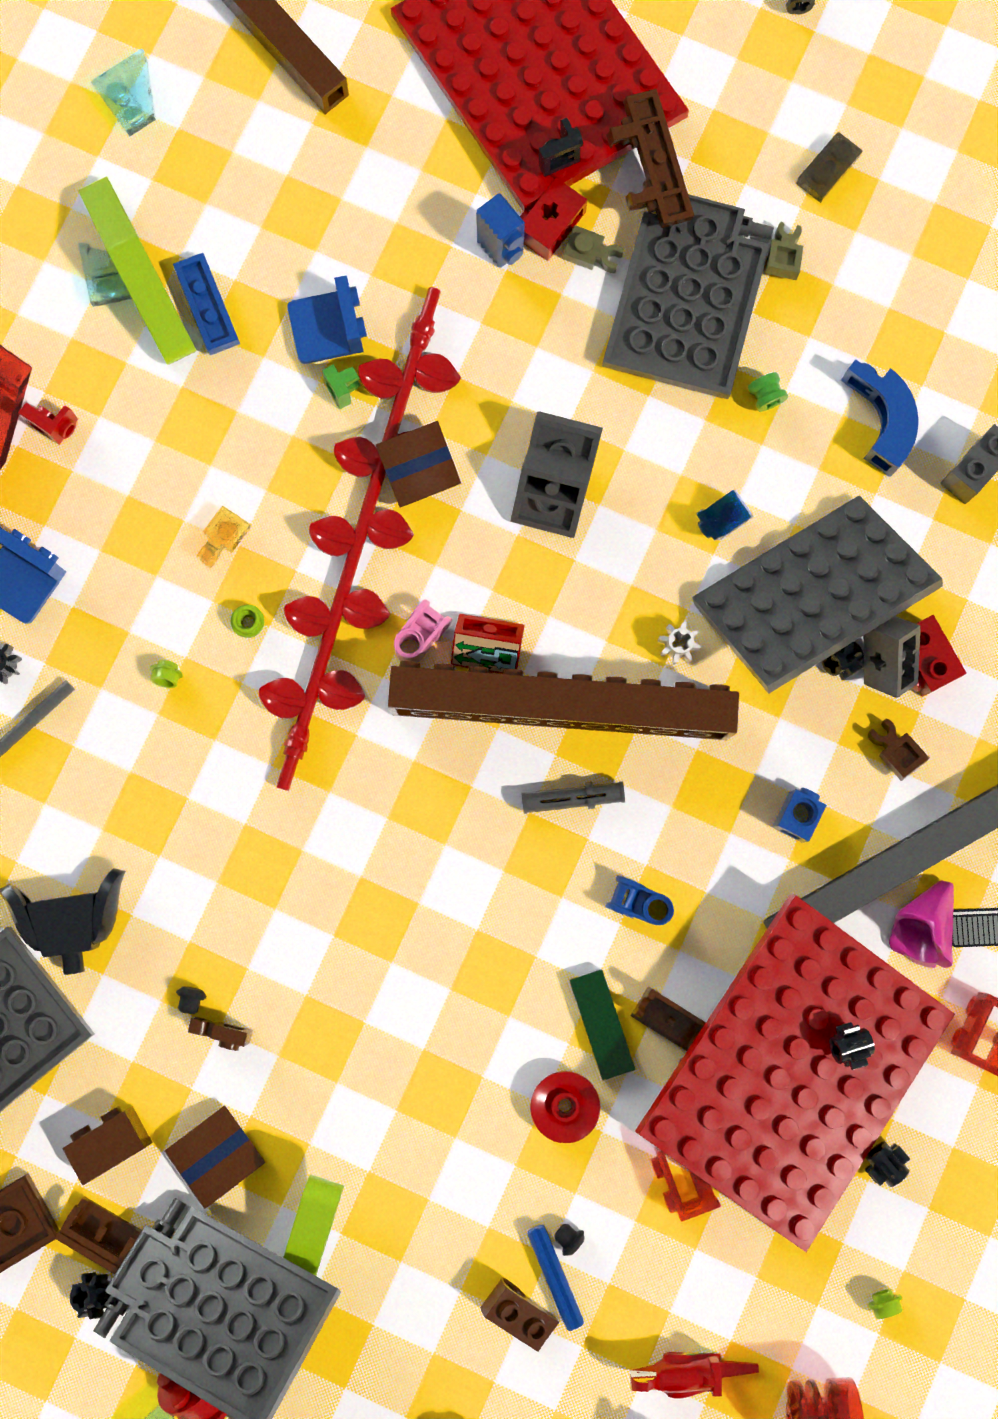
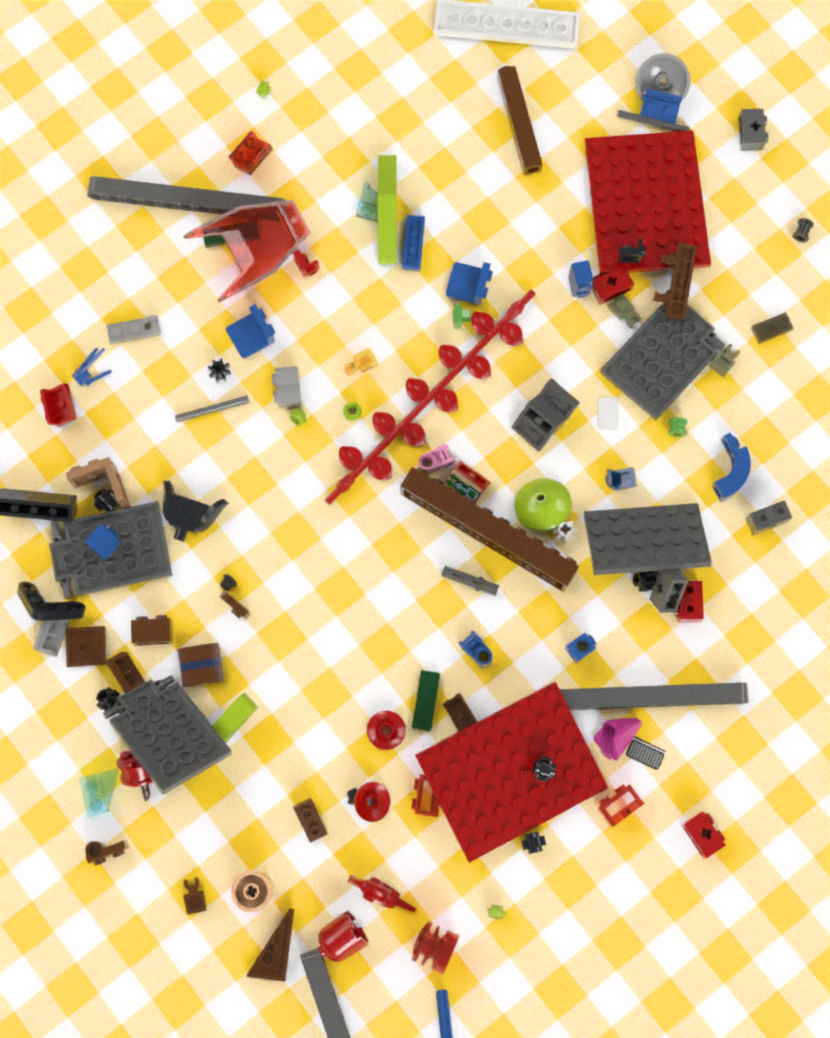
camera: 30 degrees right, 5 degrees down
(123, 635) = (287, 387): none -> light grey brick
(128, 92) = (429, 117): clear light blue wing -> none
(418, 464) = (478, 375): reddish brown slope -> none
(555, 1277) = (337, 812): blue axle -> none
(614, 1239) = (379, 801): none -> red dish
(636, 634) = (543, 514): none -> lime dish
(648, 424) = (608, 413): none -> white sticker
(901, 753) = (649, 643): reddish brown plate -> none

